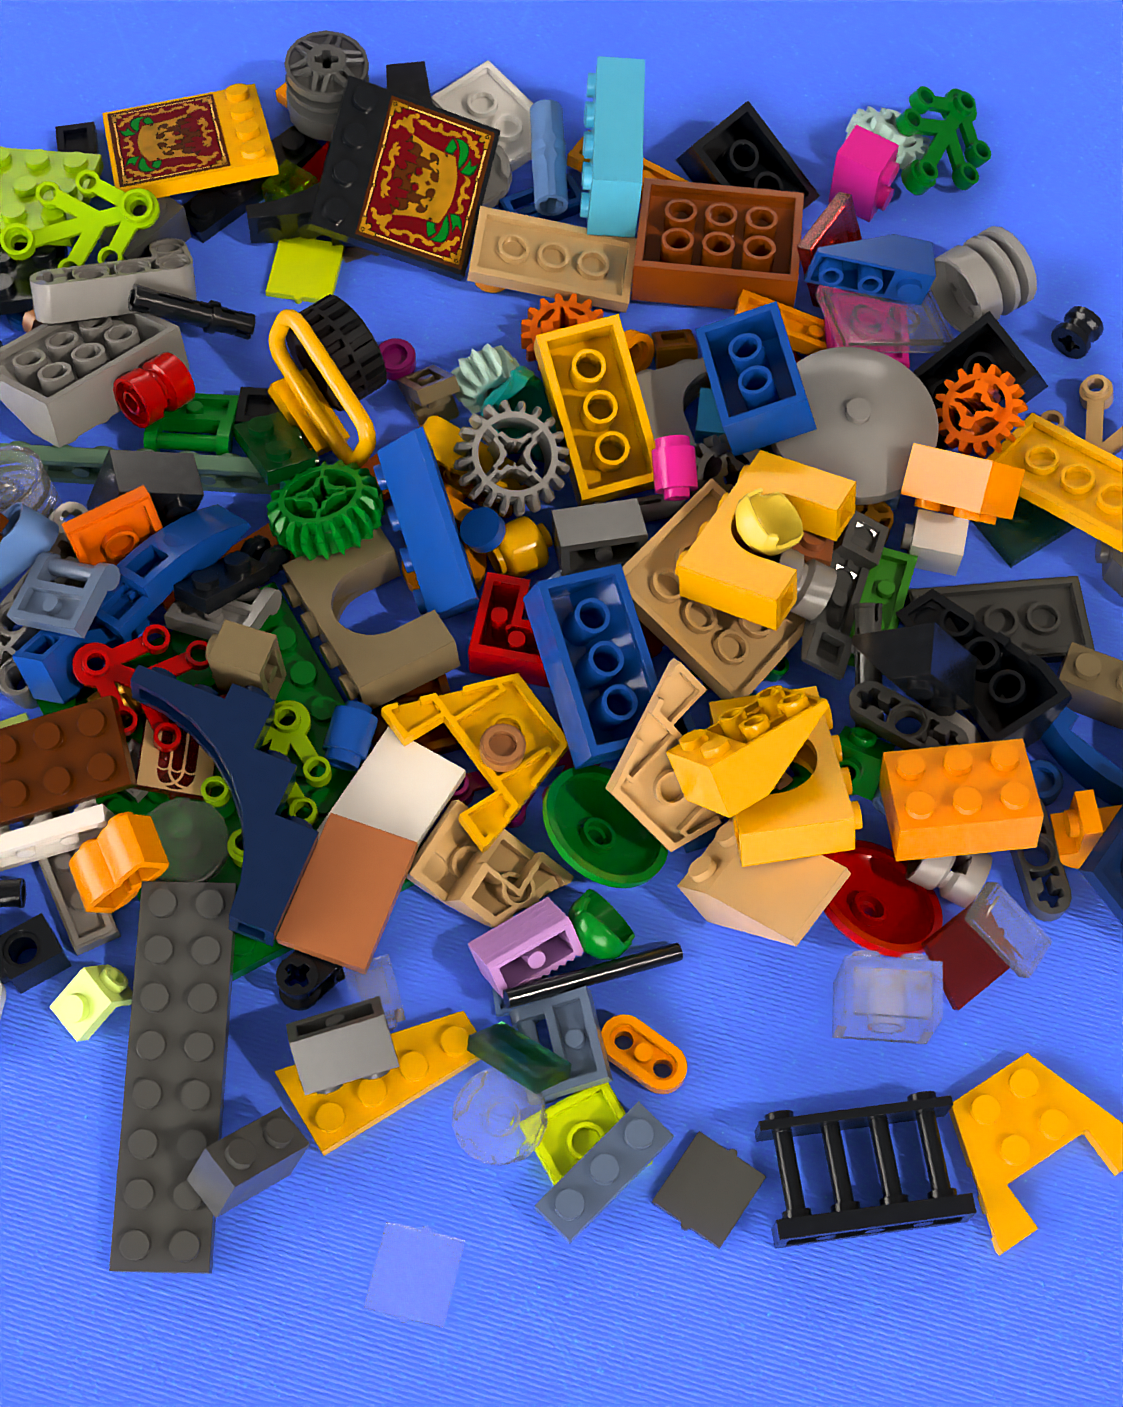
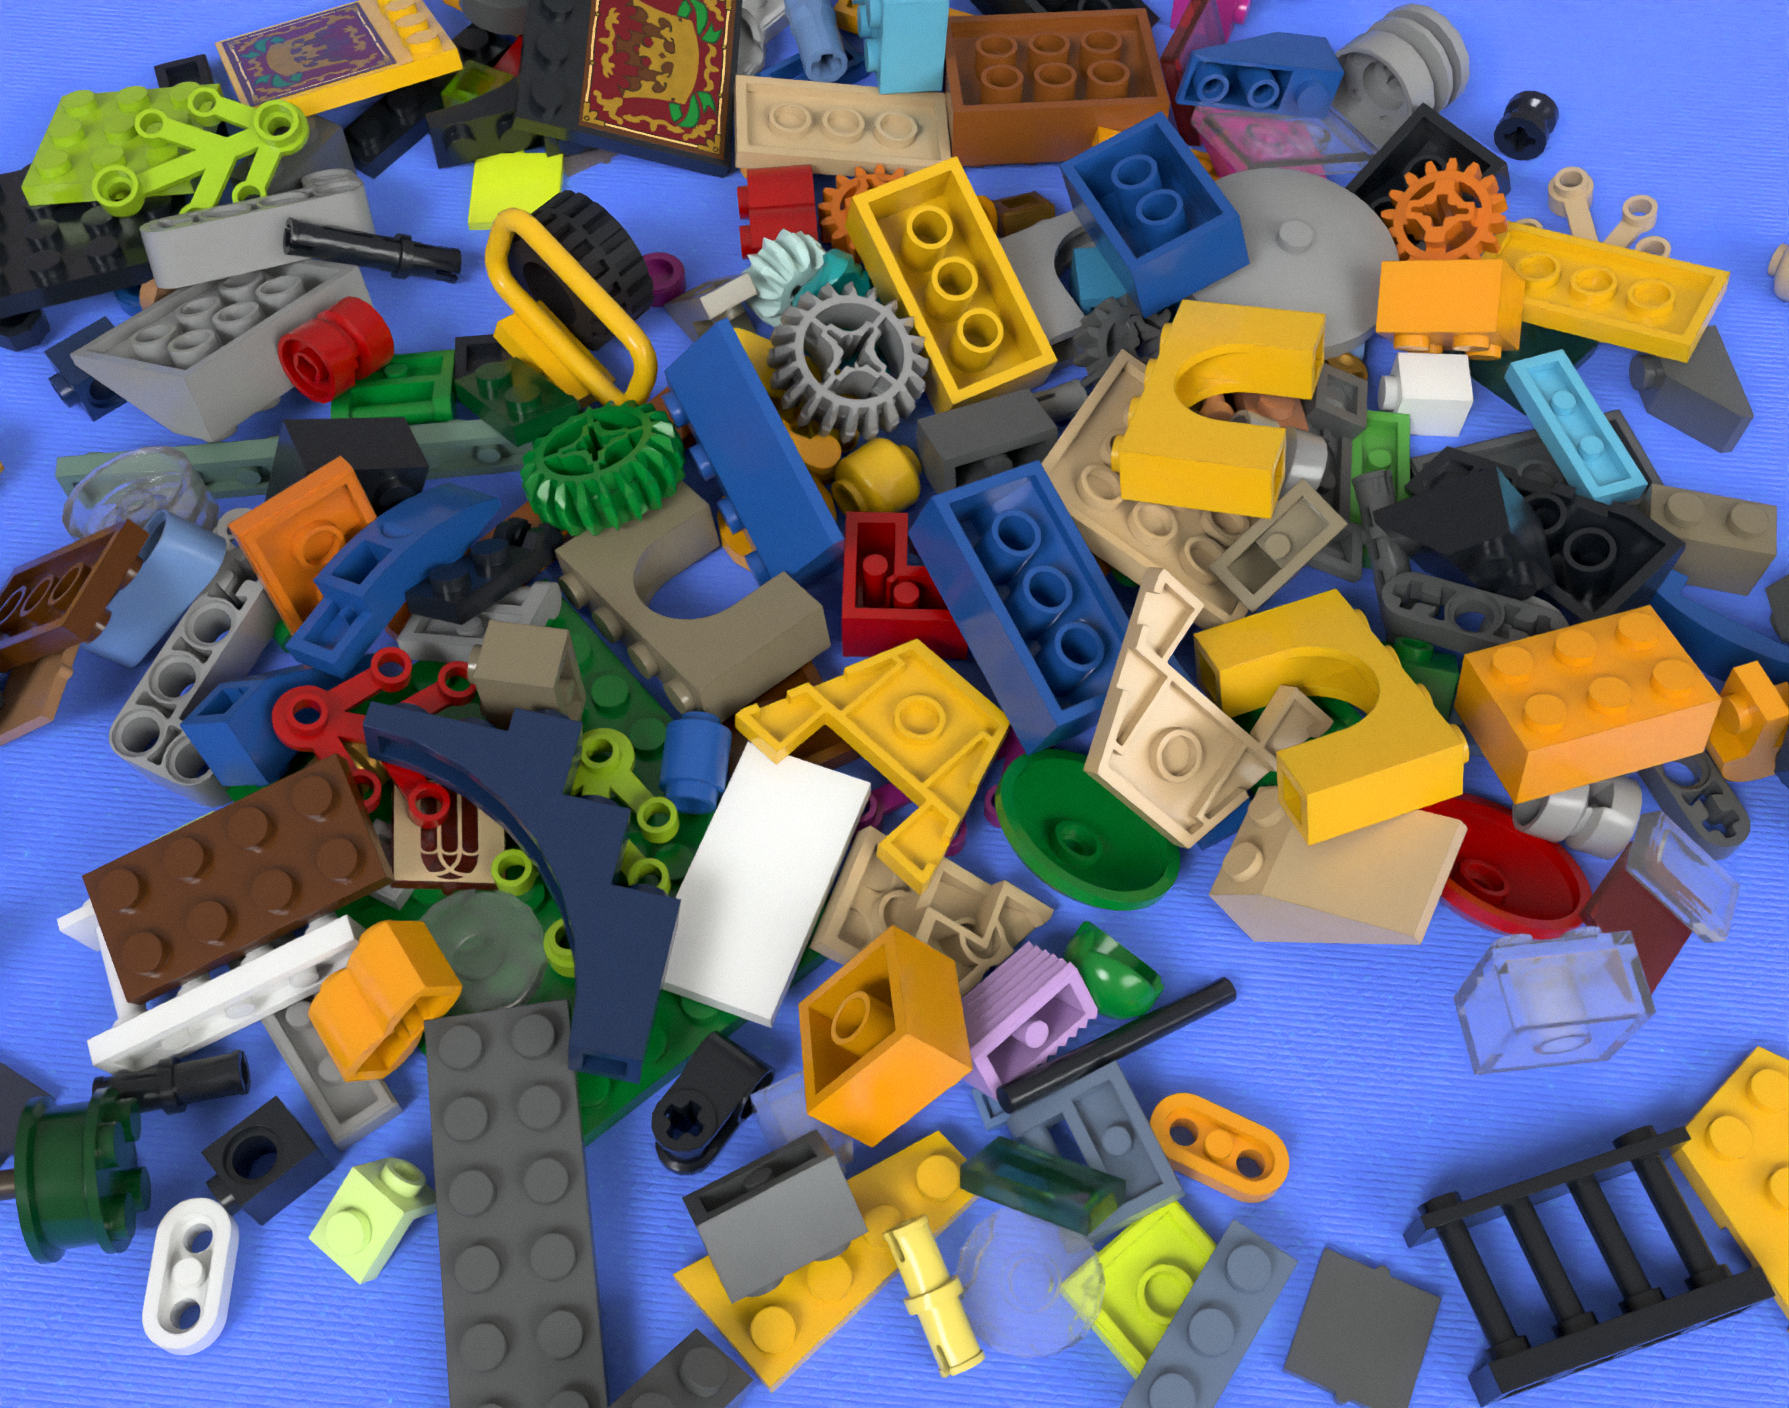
camera: 10 degrees left, 5 degrees down
(62, 606) = (244, 645): sand blue plate -> none
(347, 893) = (736, 987): nougat tile -> none
(434, 944) = (883, 1037): none -> light orange brick
(435, 1114) = (933, 1296): none -> light yellow pin
(482, 530) = (829, 458): blue tile -> none
(493, 318) = (776, 201): none -> red brick
(502, 747) = (920, 741): medium nougat tile -> none
(674, 467) = (1071, 340): dark pink brick -> none
(745, 750) = (1279, 680): yellow slope -> none
(768, 522) = (1224, 381): light yellow hair -> none
(782, 651) = (1278, 547): none -> dark tan slope
(1033, 589) = (1574, 428): none -> medium azure plate

